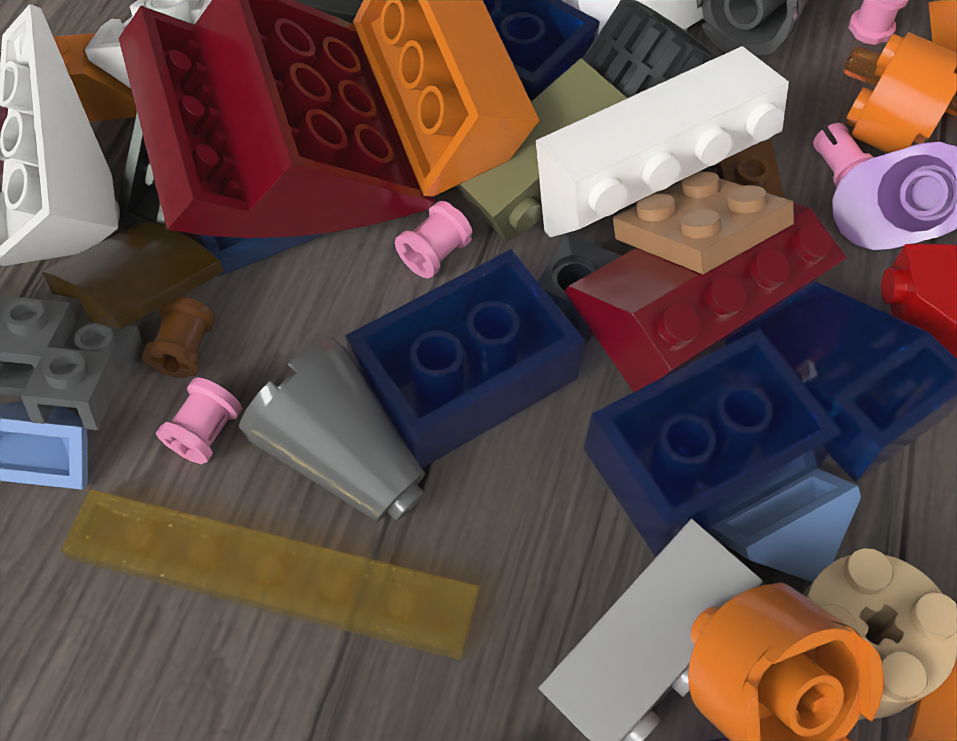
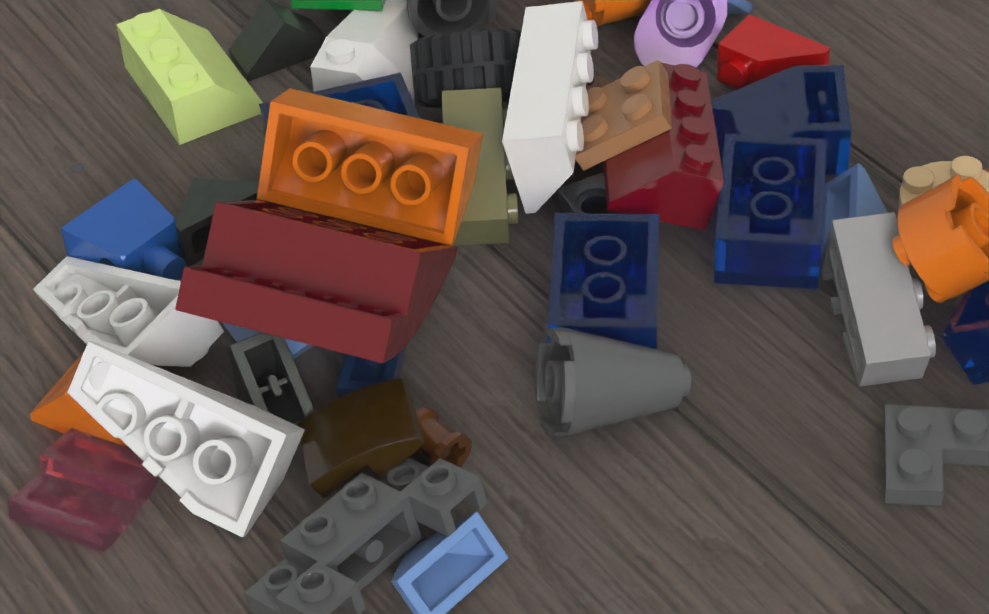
camera: 50 degrees left, 15 degrees down
(199, 420) = (523, 466): bright pink bush -> none
(274, 573) = (661, 483): clear yellow tile -> none
(434, 239) = (483, 265): bright pink bush -> none
(843, 155) = (617, 38): bright pink pin -> none

